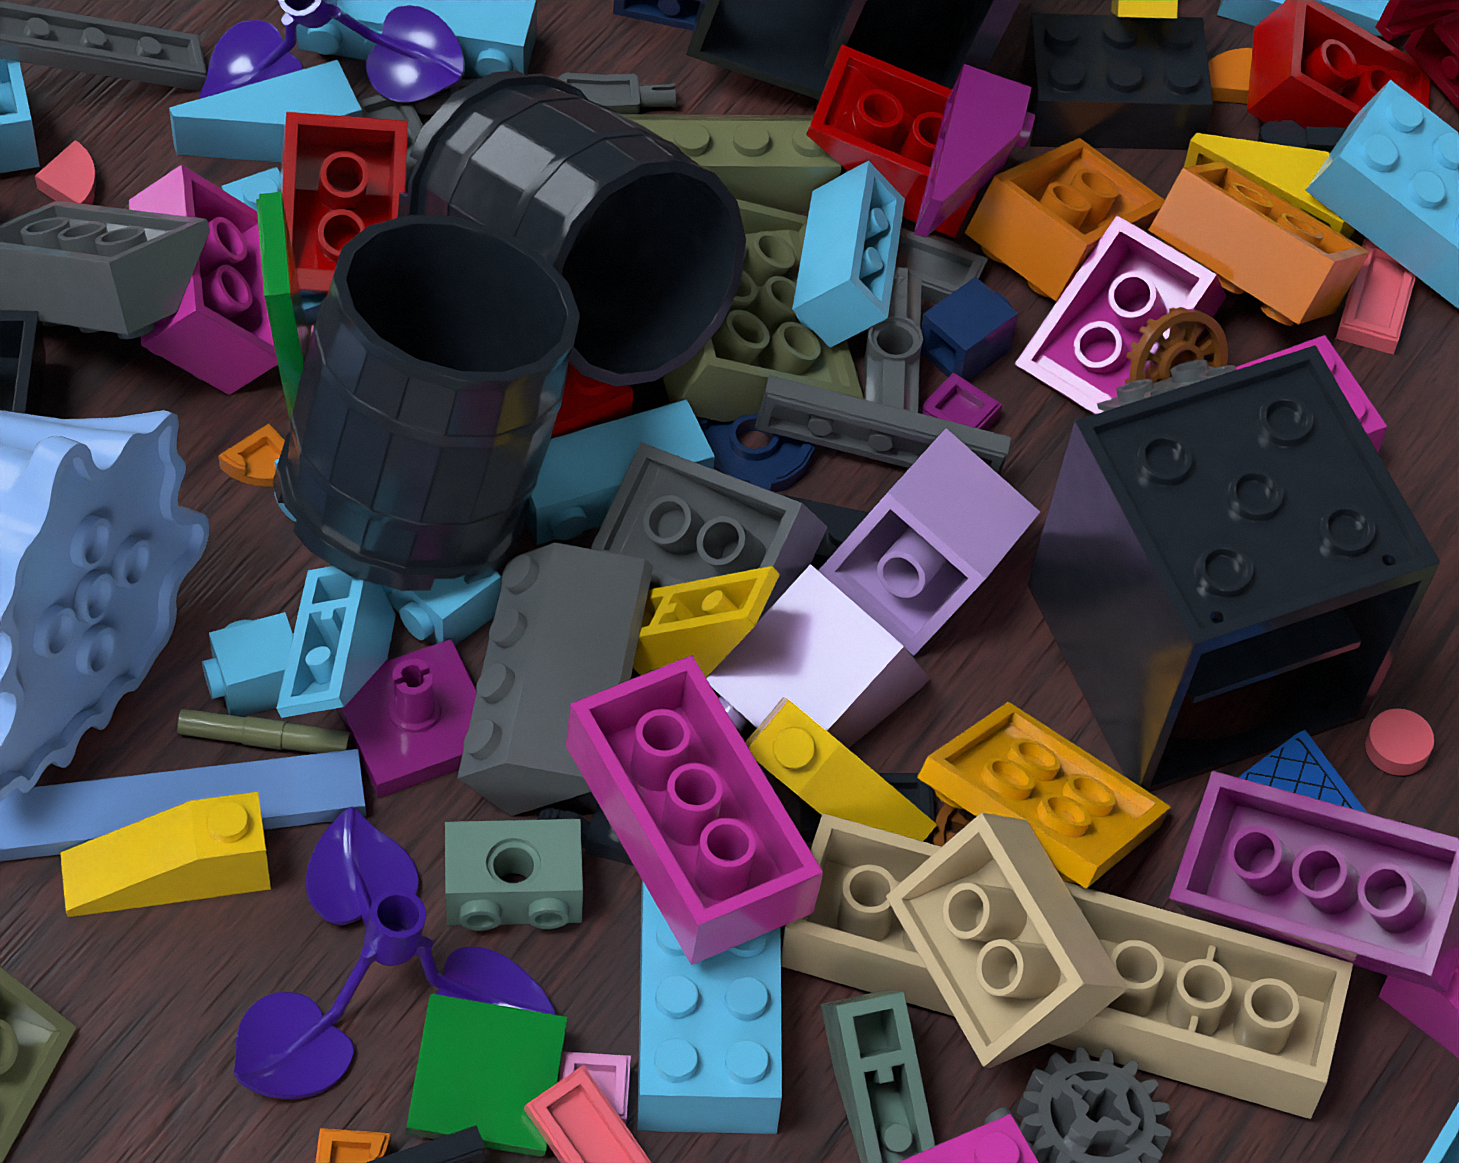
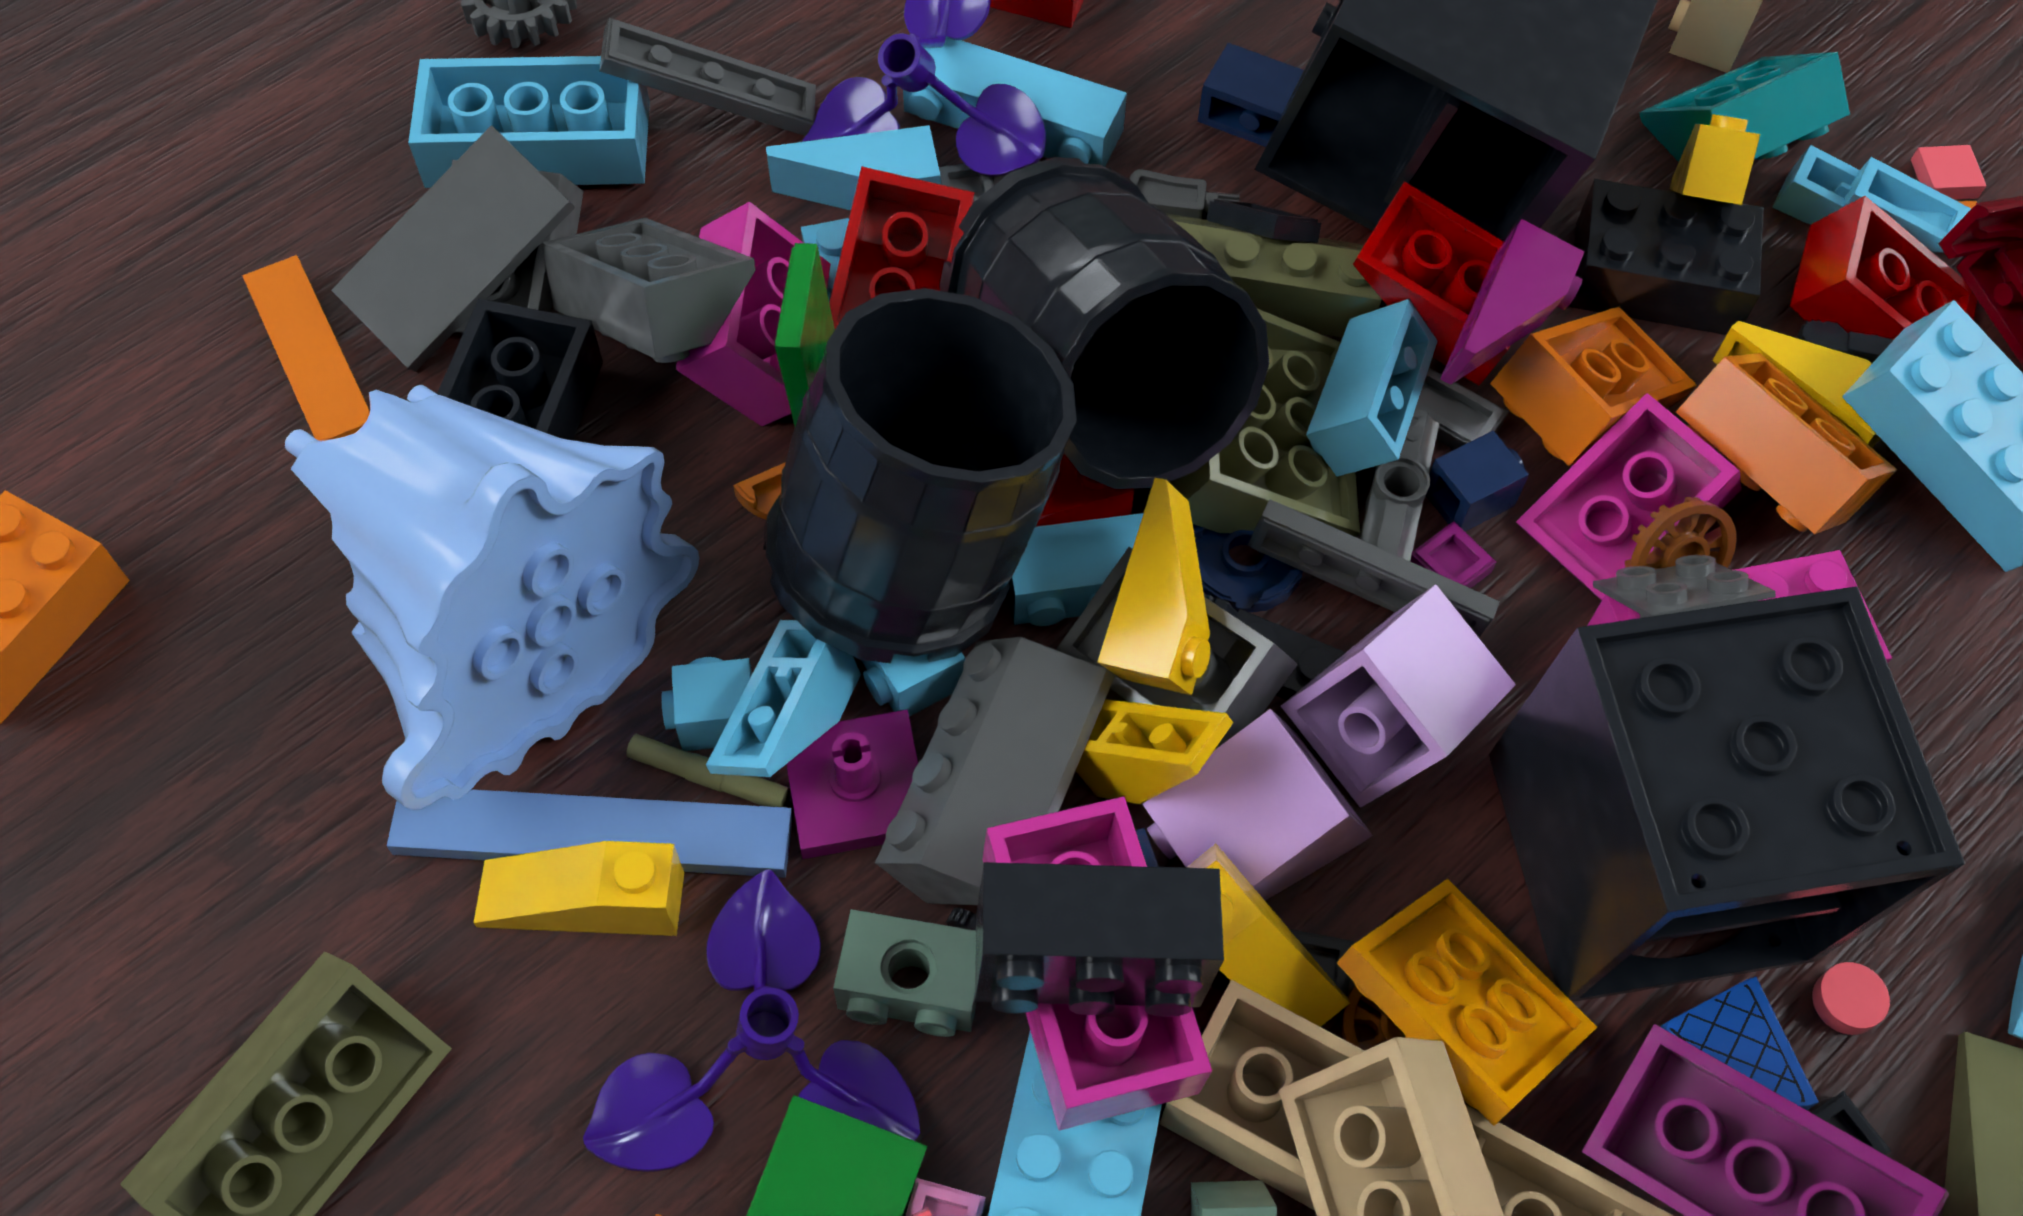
camera: 15 degrees right, 5 degrees up
(69, 176) = (668, 198): coral tile -> none
(686, 499) = (1160, 612): none -> yellow slope
(696, 764) = (1097, 937): none -> black brick
(706, 105) = (1264, 221): none -> black tile
(1231, 75) = (1780, 268): orange tile -> none
(1377, 302) = (1892, 520): coral tile -> none

